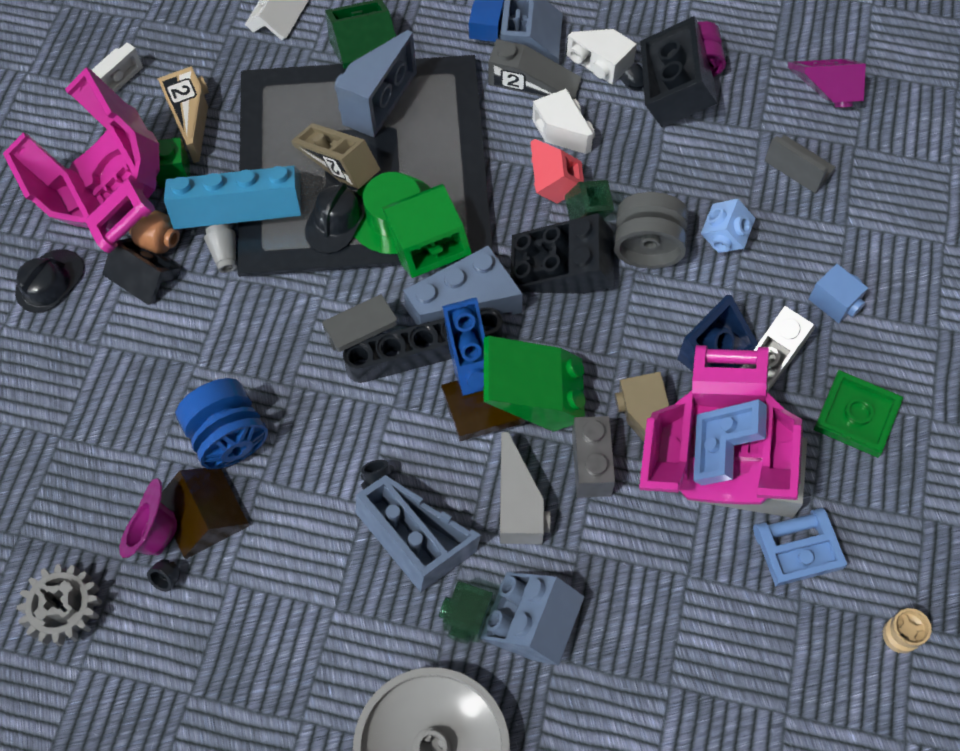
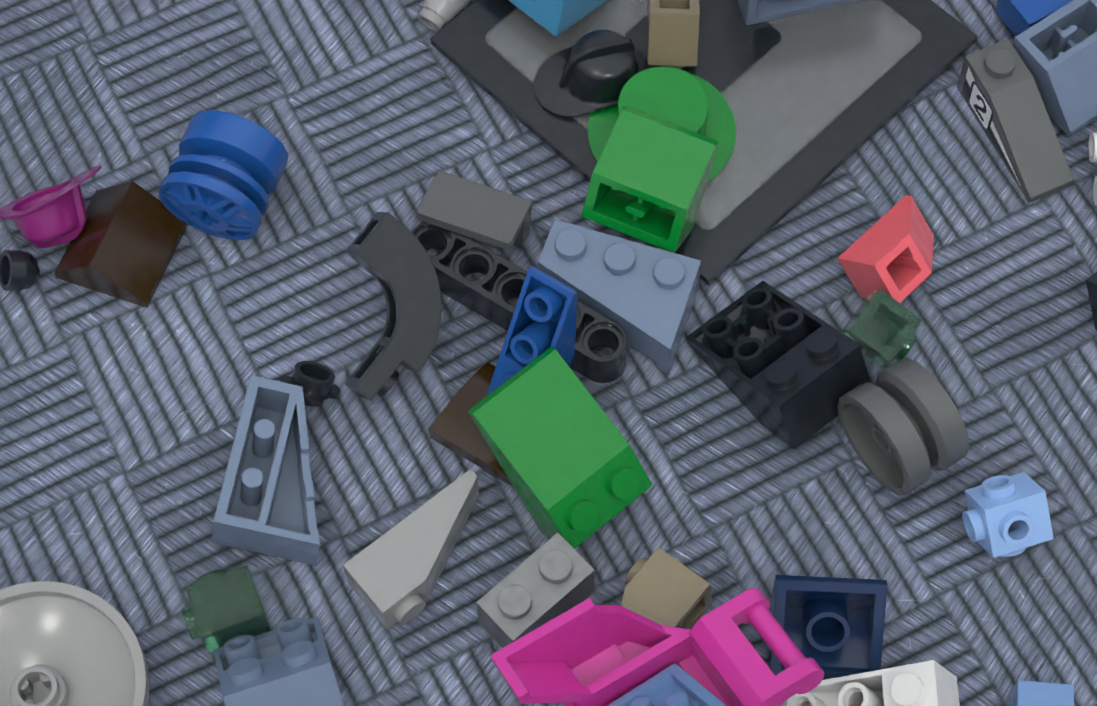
camera: 50 degrees right, 0 degrees up
(385, 390) = (411, 299): none -> black arch
(561, 122) = (973, 207): white slope -> none

